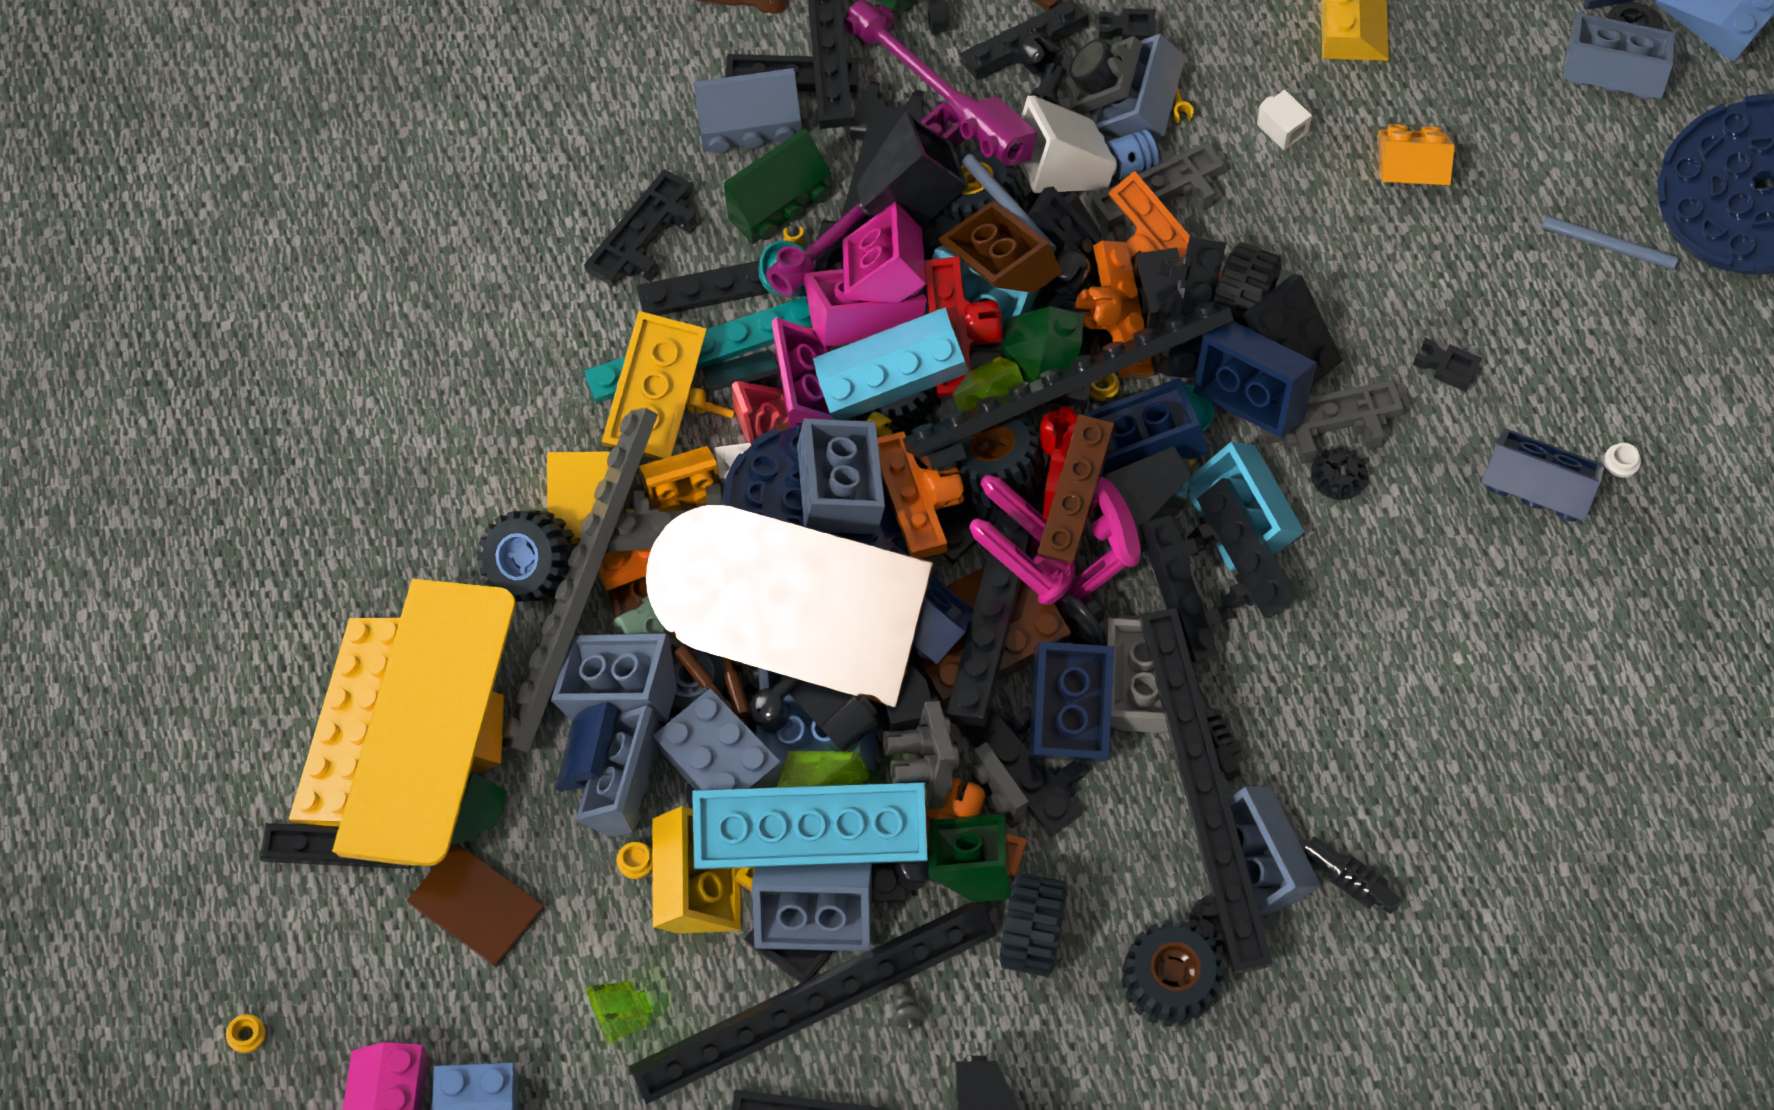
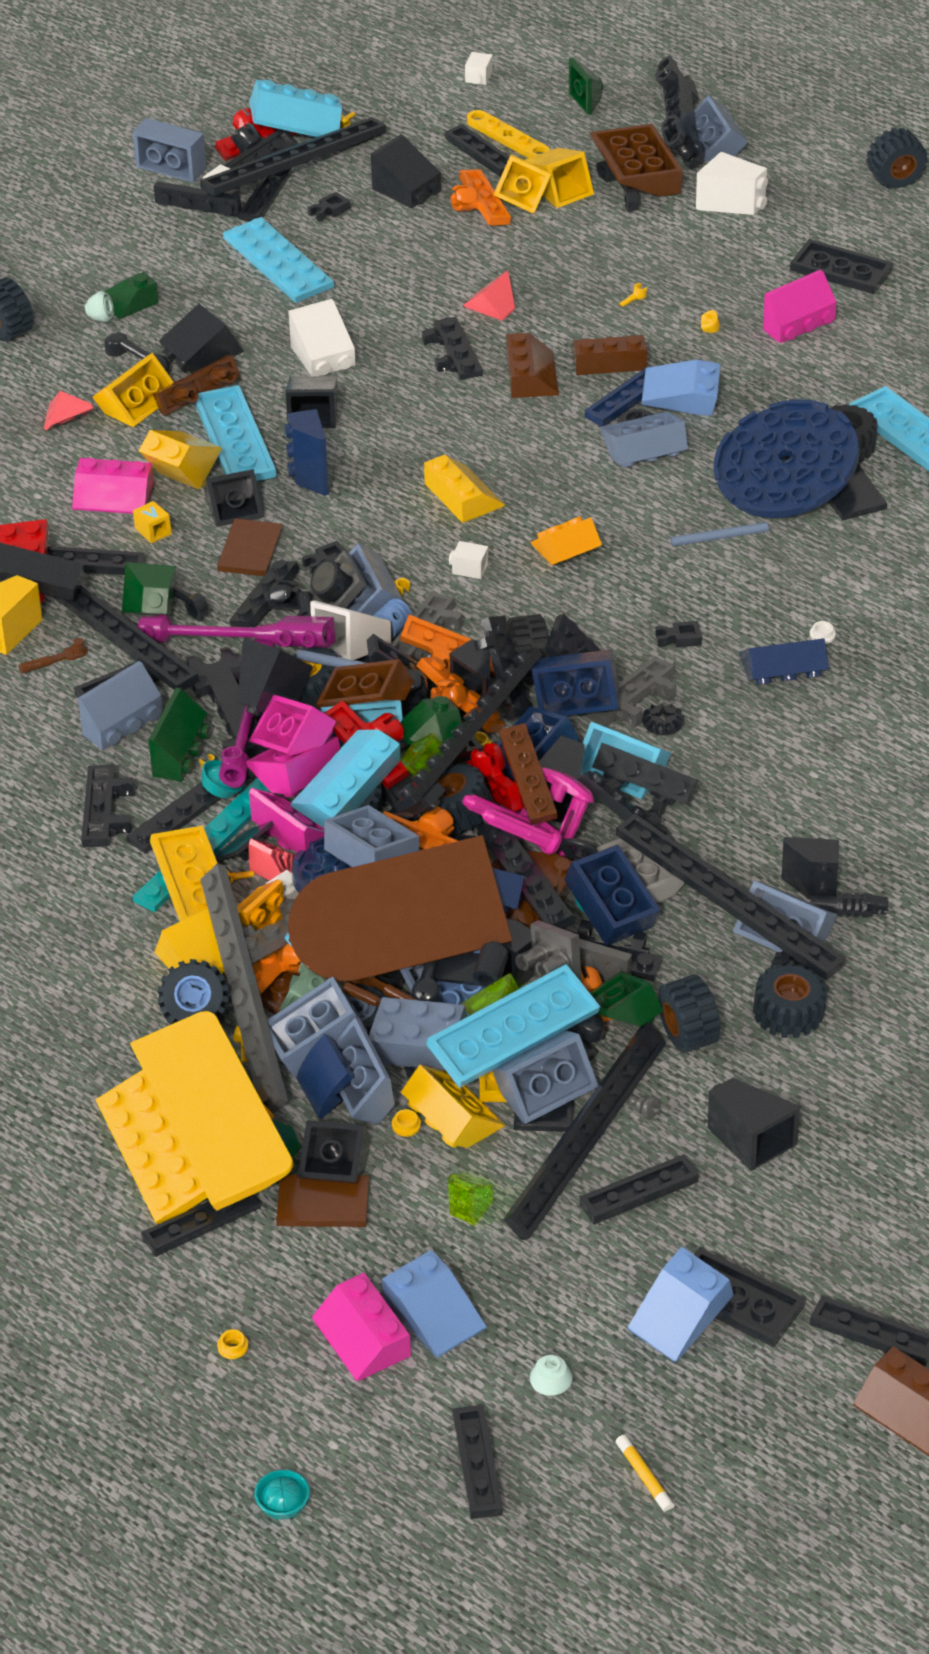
camera: 35 degrees left, 20 degrees down
(521, 856) = (333, 1151): none -> black slope
(1339, 804) = (811, 865): none -> black slope

